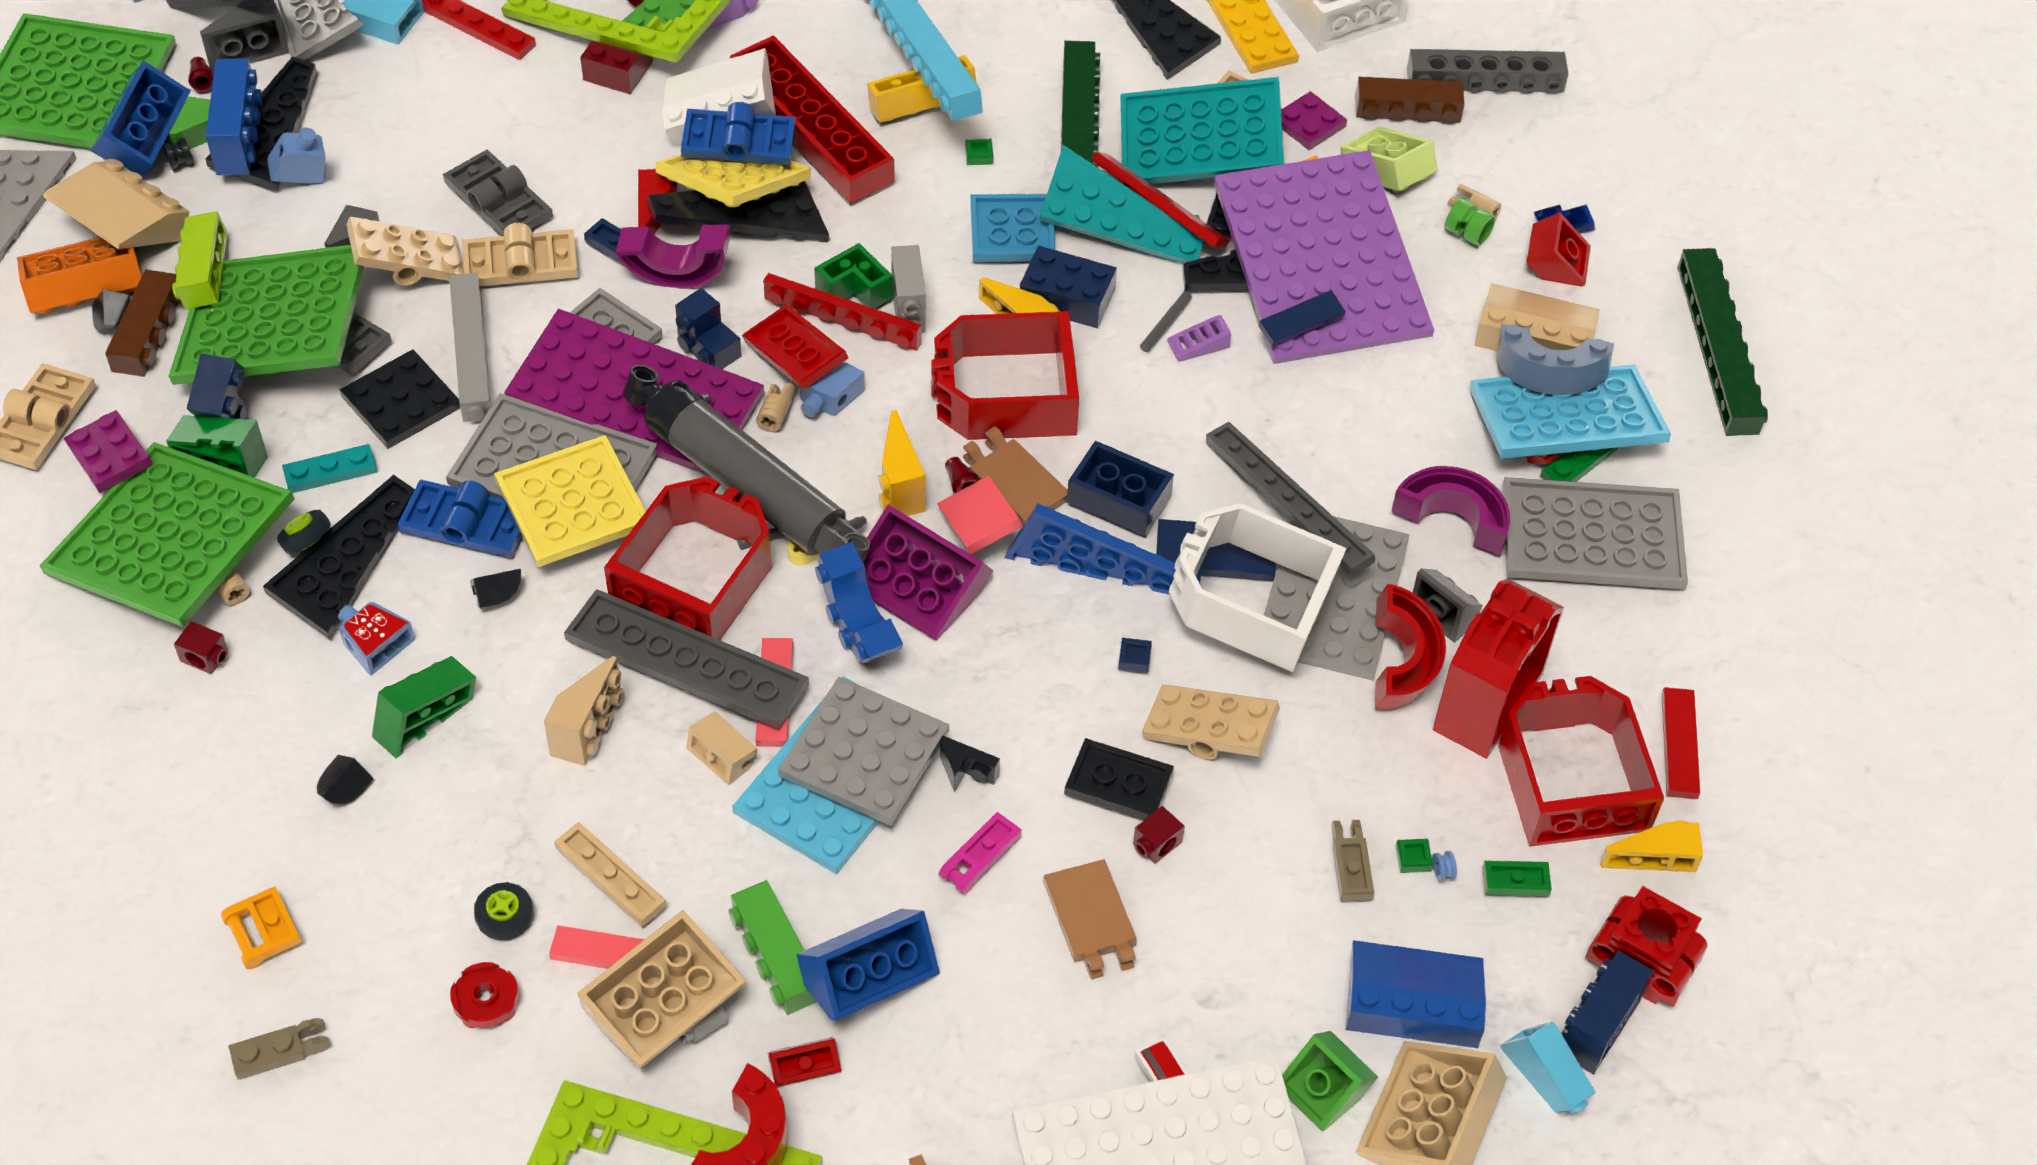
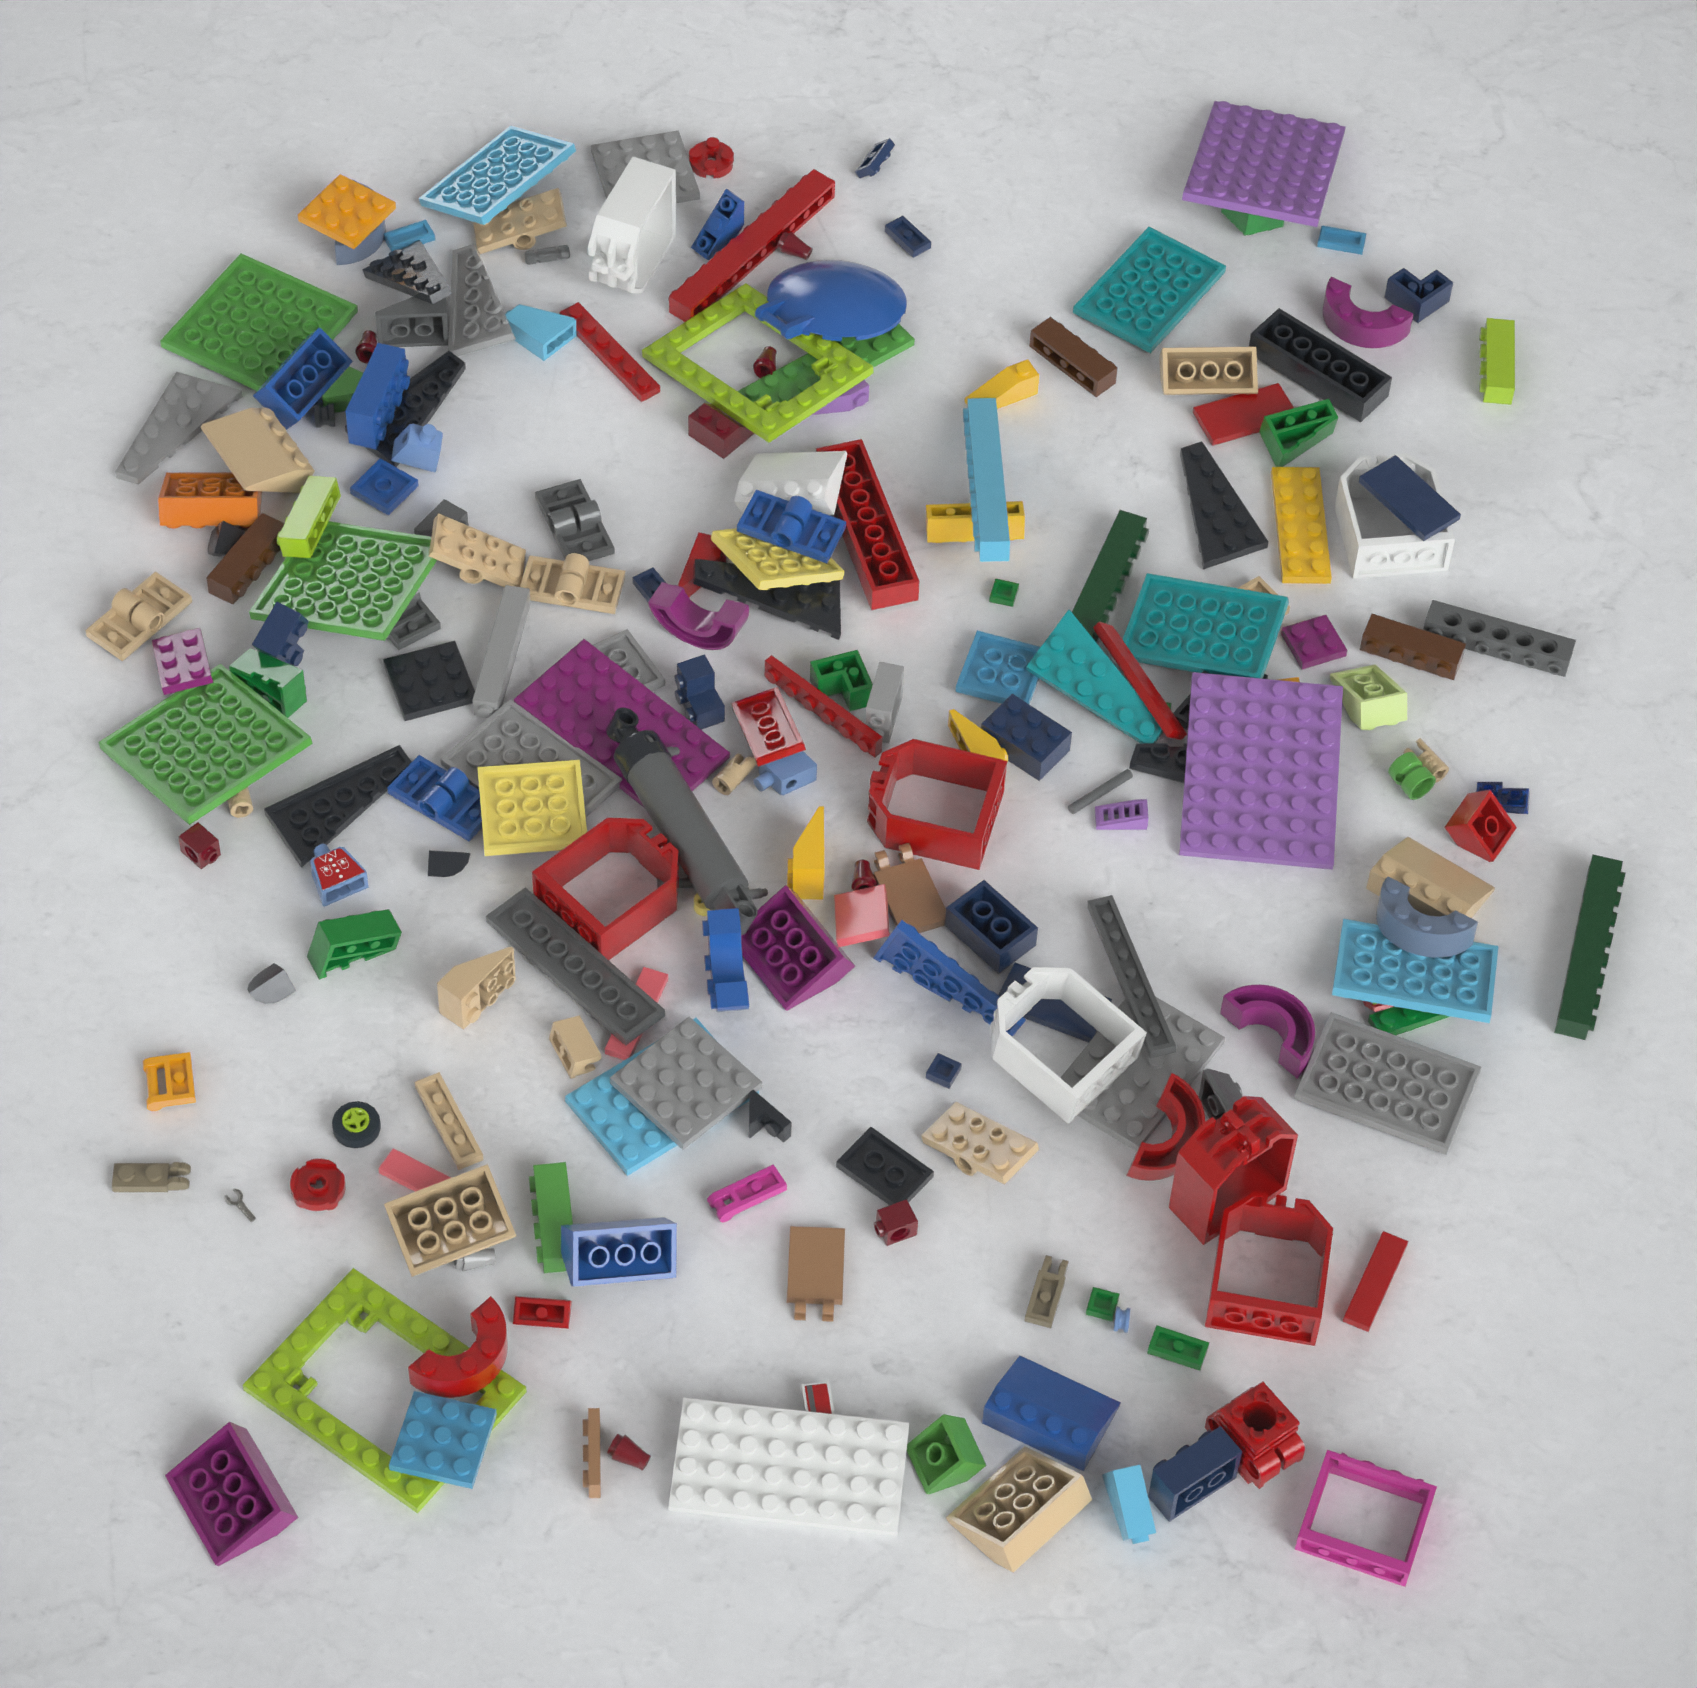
camera: 20 degrees right, 0 degrees up
(272, 210) = (384, 486): none -> blue plate
(303, 531) = (311, 772): black wheel -> none
(329, 468) = (351, 724): teal plate -> none
(399, 1047) = (240, 1205): none -> clear smoke hand
(1301, 318) = (1215, 822): dark blue tile -> none
(1660, 848) = (1310, 1360): yellow slope -> none
(1801, 1048) = (1353, 1555): none -> dark pink window

